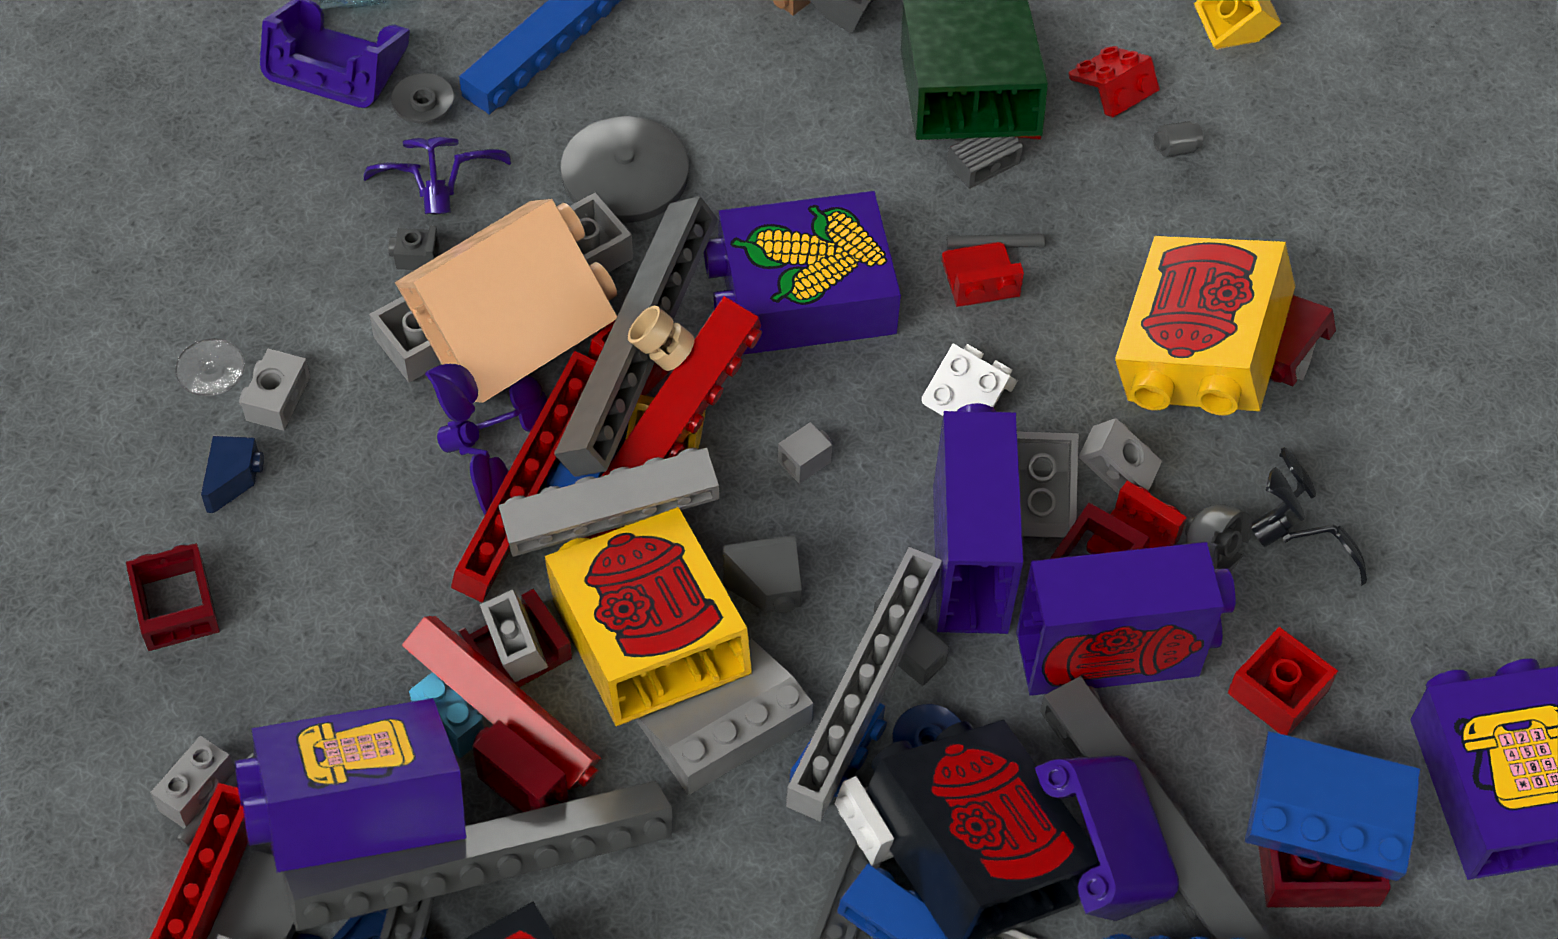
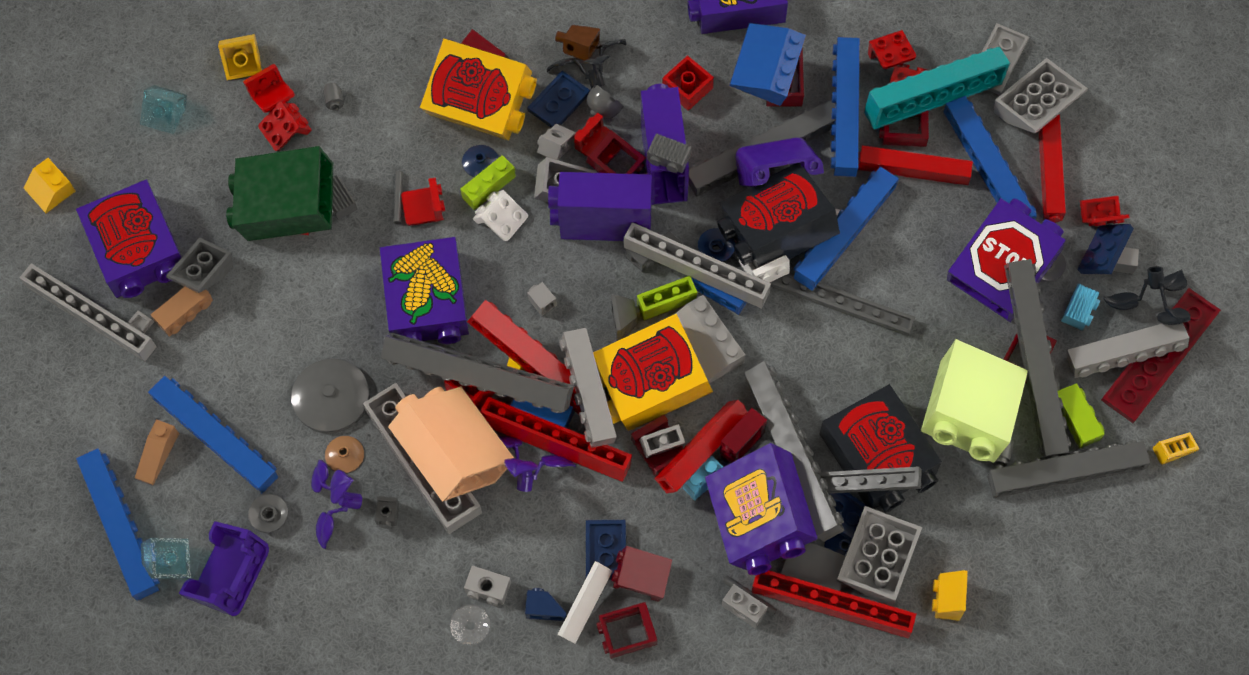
camera: 85 degrees left, 10 degrees up
(226, 526) = (585, 602): none -> white tile
(267, 611) = (642, 572): none -> dark red panel
(324, 563) = (604, 542): none -> dark blue plate
(509, 196) = (349, 461): none -> medium nougat dish
(661, 338) = (494, 352): tan wheel -> none
(808, 646) = (666, 297): none -> lime brick
(1032, 362) = (489, 180): none -> lime brick
(1063, 582) = (669, 153): none -> dark grey brick
(1078, 368) = (472, 165): none -> dark blue dish
(1181, 47) = (268, 88): none -> red bracket
(1215, 468) = (558, 100): none -> dark blue plate
(1347, 497) = (579, 41): none -> reddish brown torso

